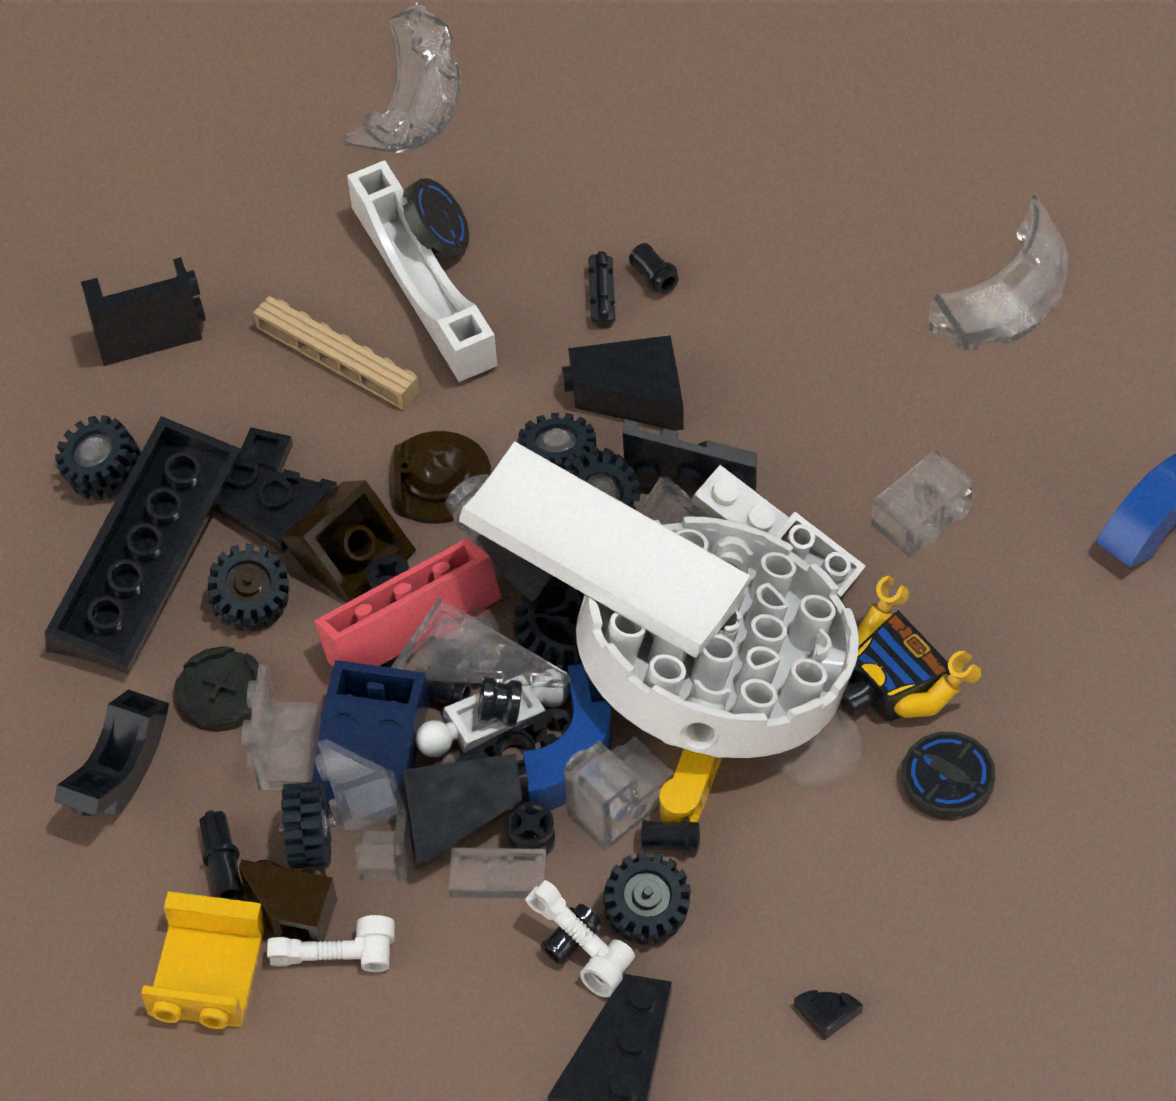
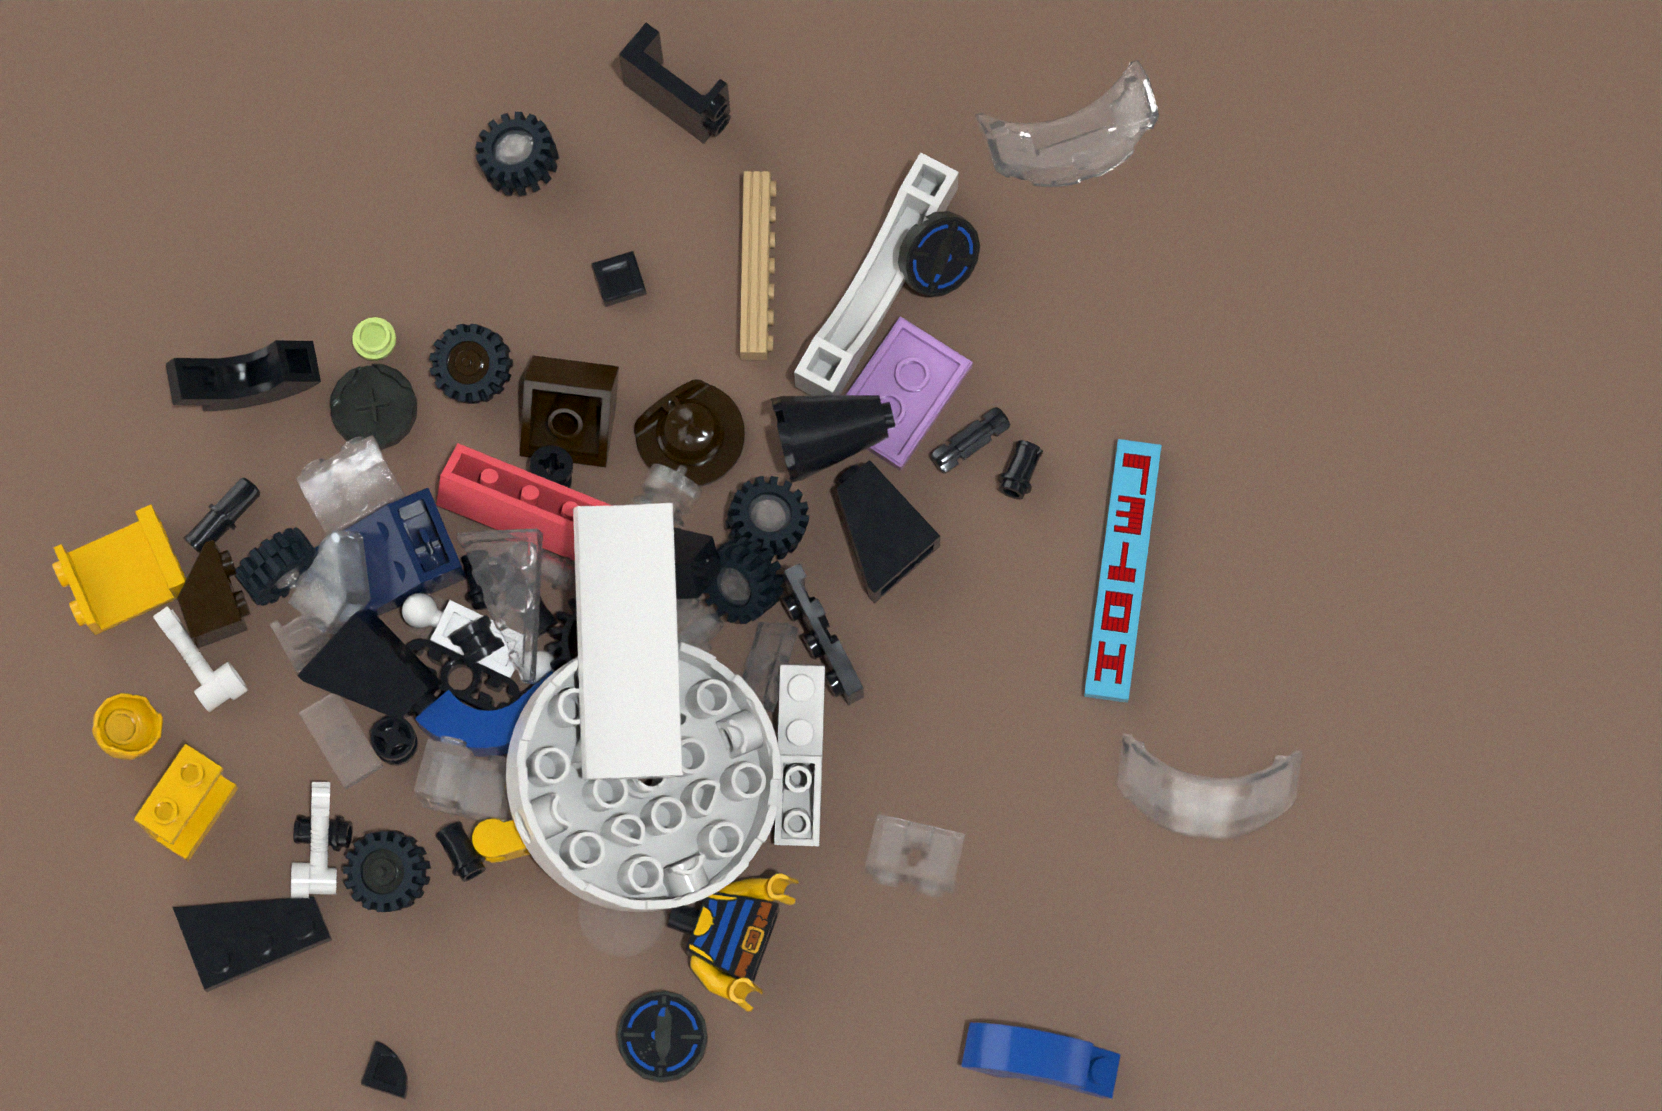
camera: 55 degrees right, 20 degrees up
(142, 546) = (454, 253): black arch -> none
(162, 652) = (374, 338): none -> yellowish green plate
(269, 500) = (567, 304): black wing -> none
(353, 1034) = (127, 726): none -> yellow hair
(466, 1010) = (186, 803): none -> yellow panel
(518, 366) = (828, 429): none -> black cone
(525, 315) = (917, 380): none -> lavender tile
(790, 250) = (1122, 571): none -> medium azure tile

